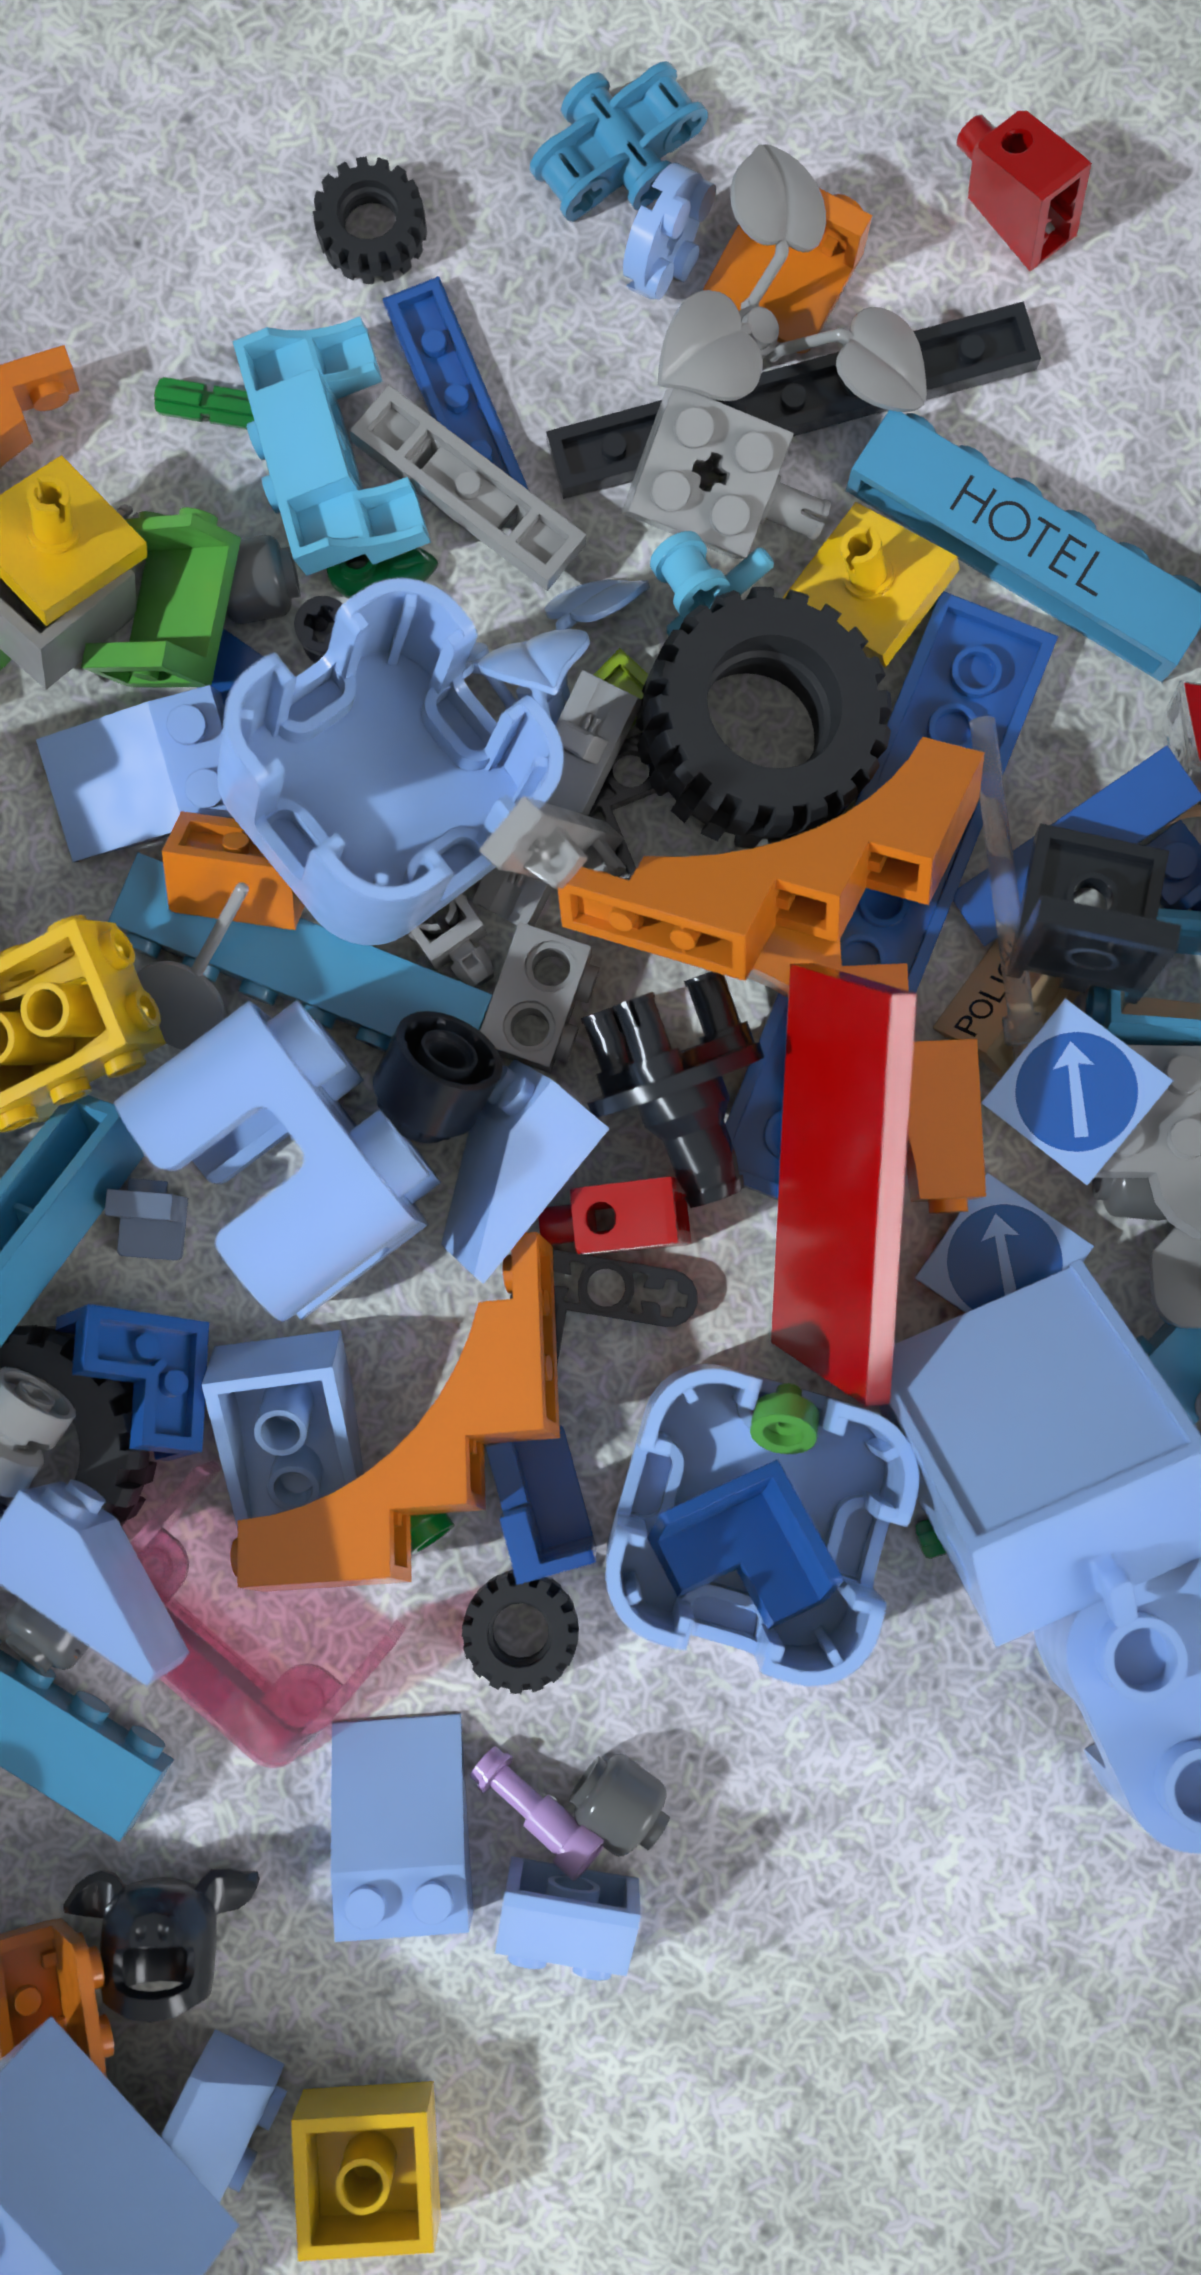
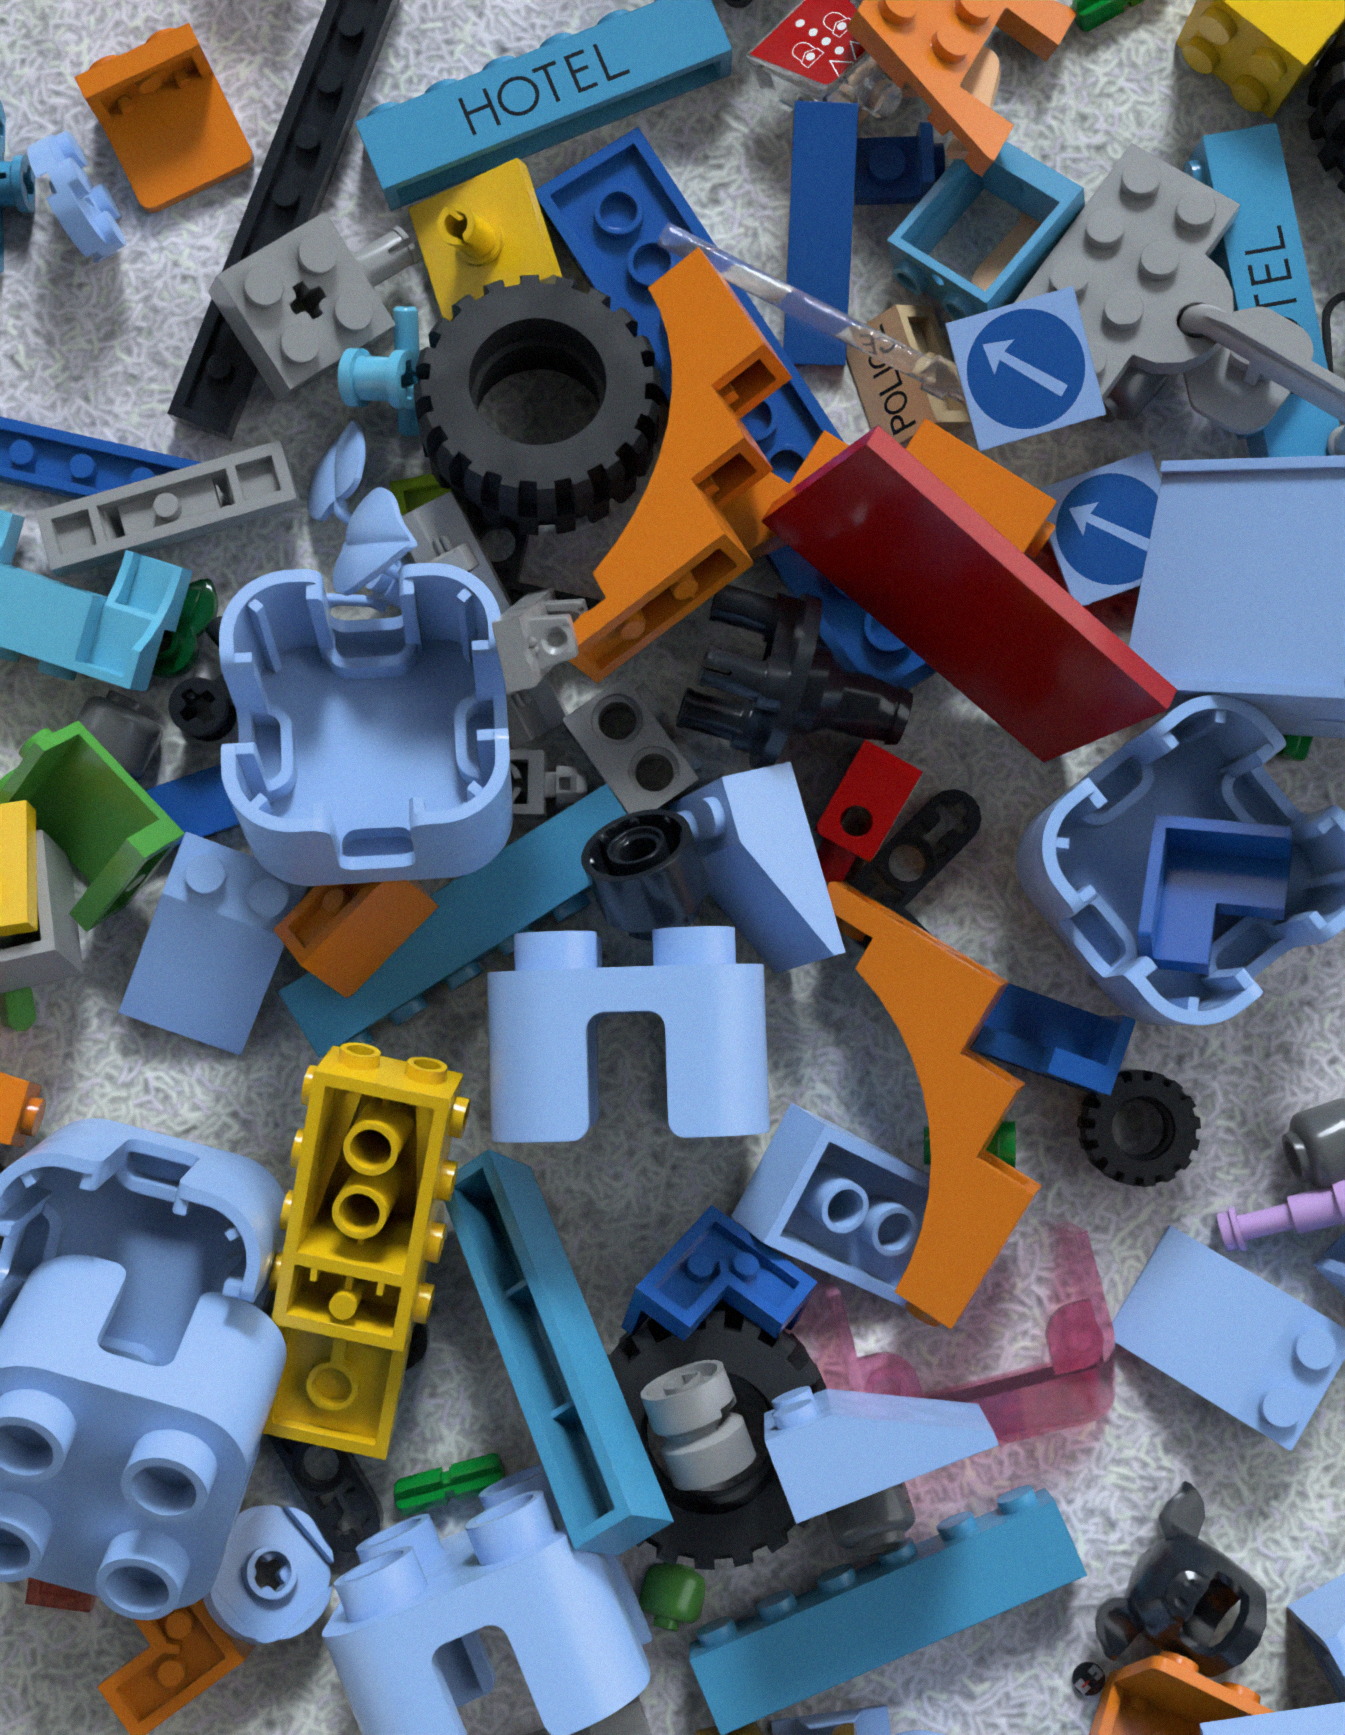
camera: 55 degrees left, 0 degrees up
(43, 1903) = (1088, 1678): none -> black piece
(150, 1220) = (589, 1198): sand blue bracket -> none
(183, 995) = (425, 1031): light grey piece -> none
(721, 349) = (207, 212): light grey plant -> none
(785, 1421) = (1128, 786): bright green tile -> none
(1084, 943) = (913, 280): black bracket -> none

